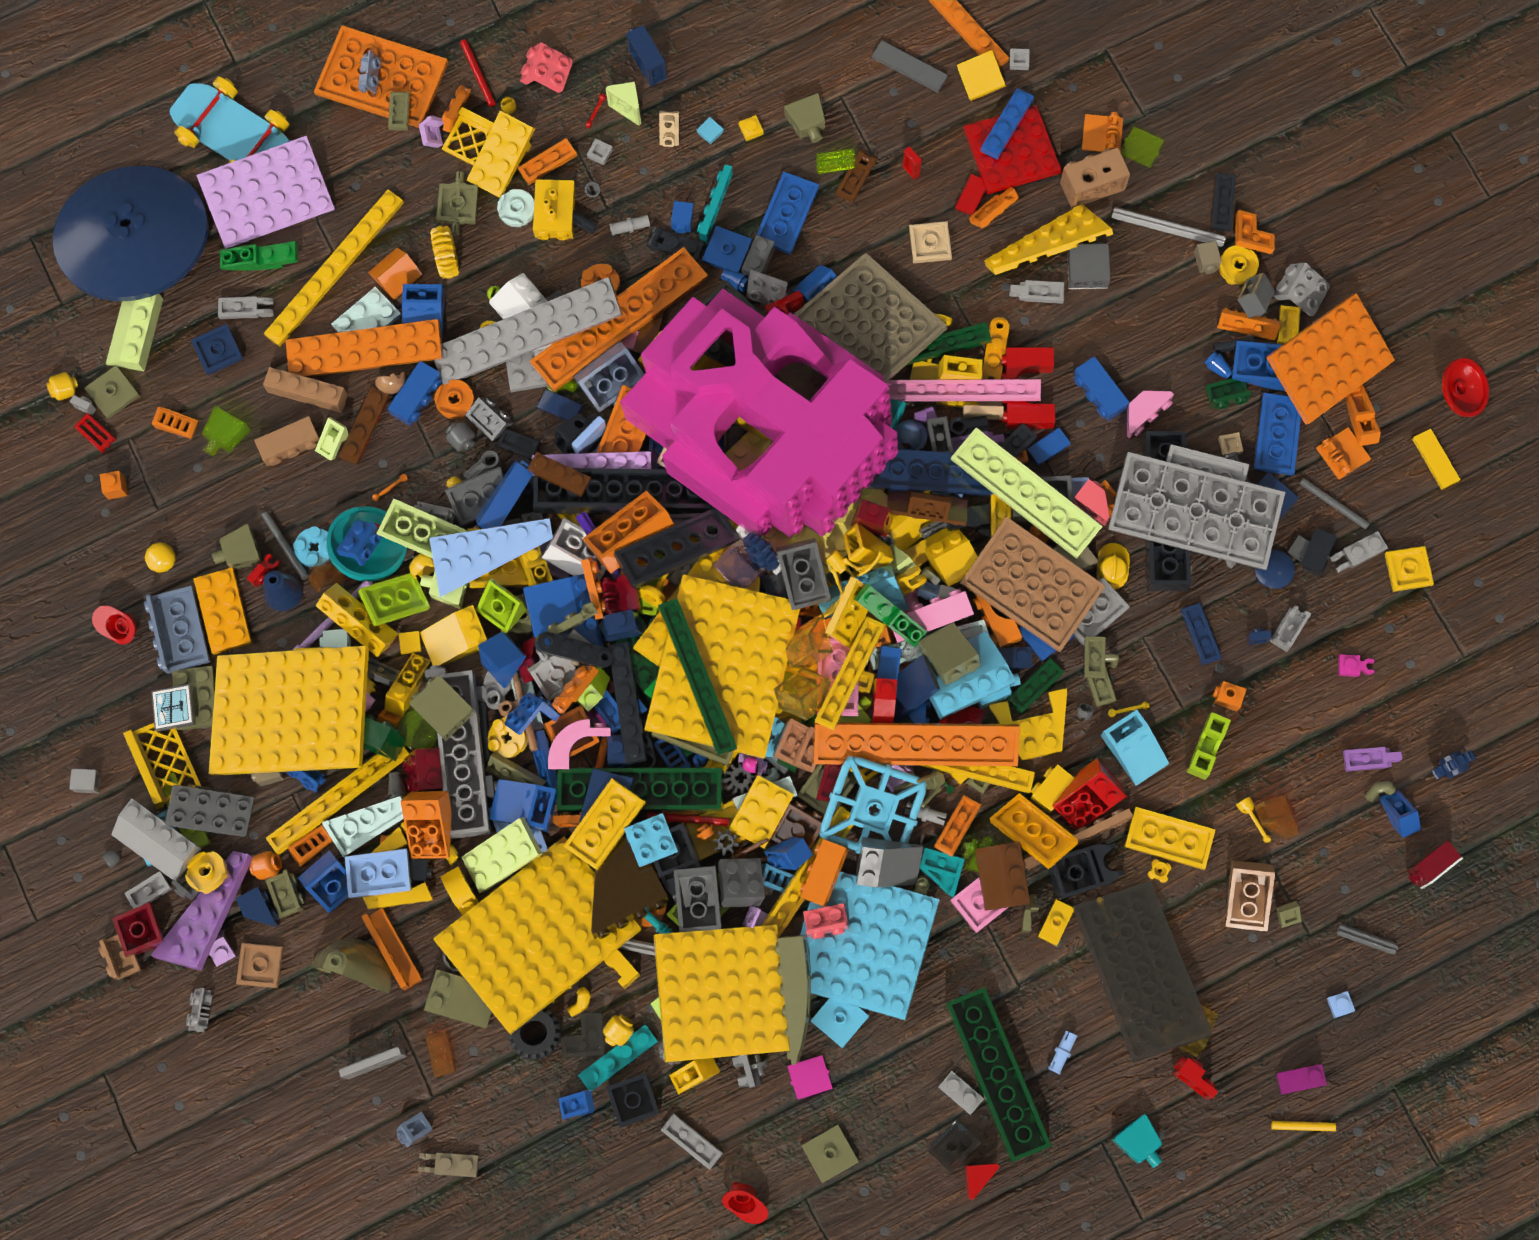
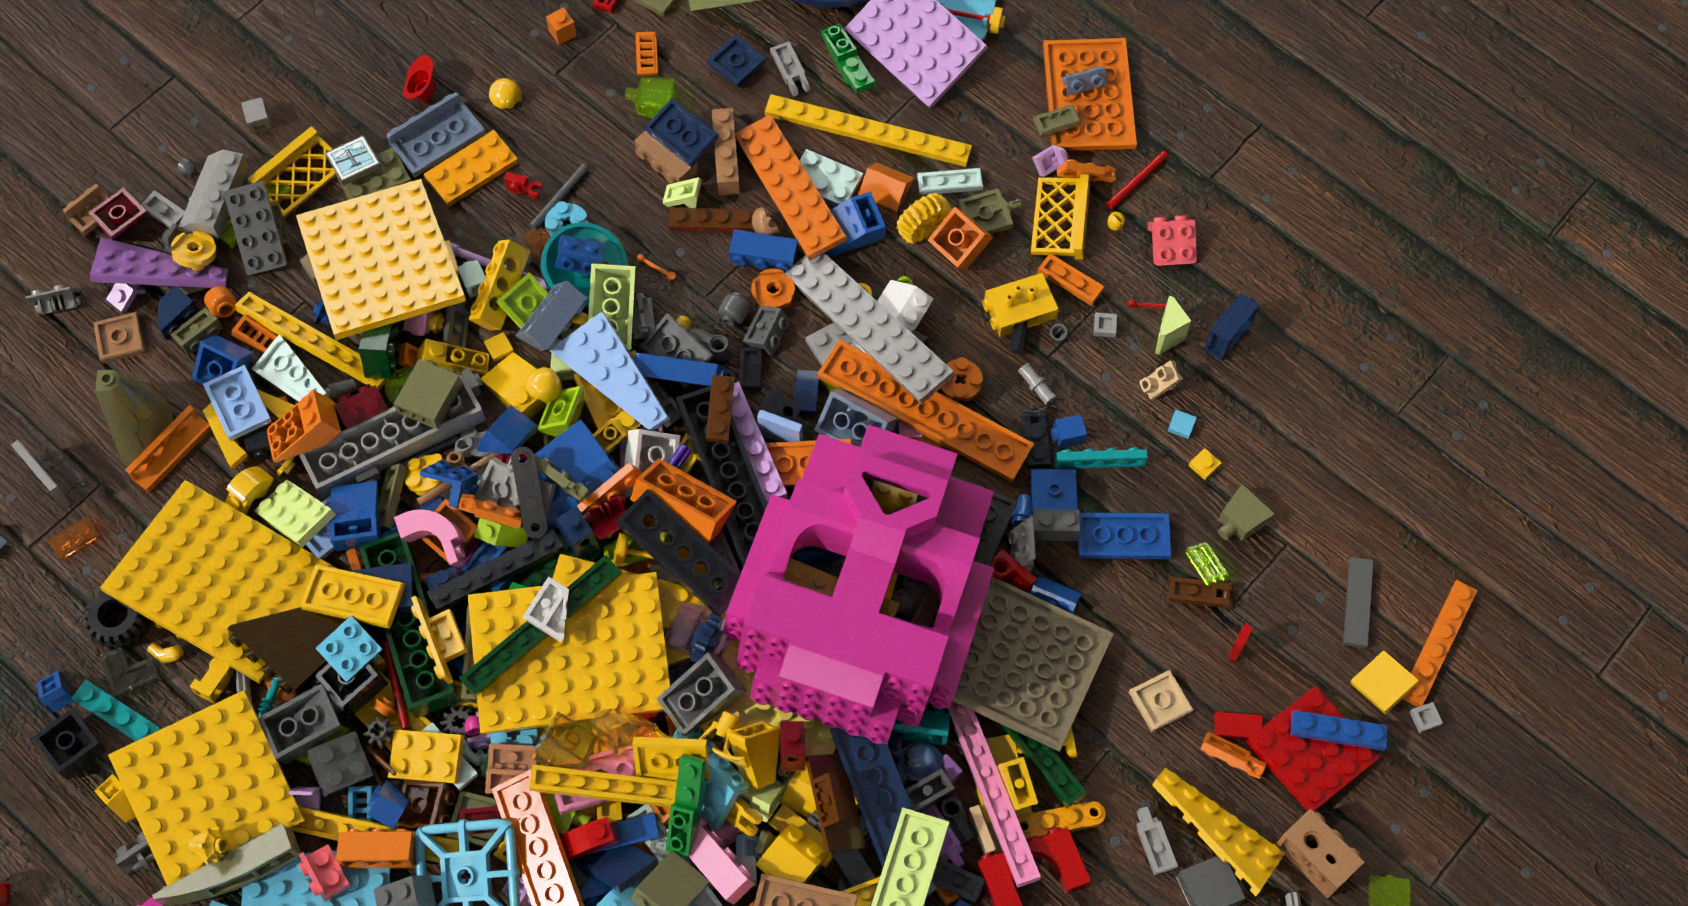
camera: 65 degrees right, 10 degrees down
(238, 549) = (538, 156): olive torso -> none
(275, 417) = (681, 132): none -> dark blue tile
(282, 590) = (509, 208): dark blue cone -> none
(410, 583) = (552, 316): none -> sand blue slope
(413, 220) = (950, 181): none -> light aqua tile
(456, 999) = (128, 521): olive slope -> none
(471, 611) = (544, 384): none -> yellow hair
(477, 230) = (960, 238): none -> orange brick
(500, 154) = (1055, 230): yellow plate -> none
(516, 208) = (1006, 268): light aqua tile -> none
(618, 1030) = (144, 701): yellow head -> none
(671, 760) = (442, 636): none -> yellow bracket
(689, 663) = (549, 609): none -> white wing
(691, 1141) = (45, 824): light grey tile -> none
(773, 1002) = (208, 844): none -> yellow rock
(1102, 132) = (1383, 846): orange hinge -> none

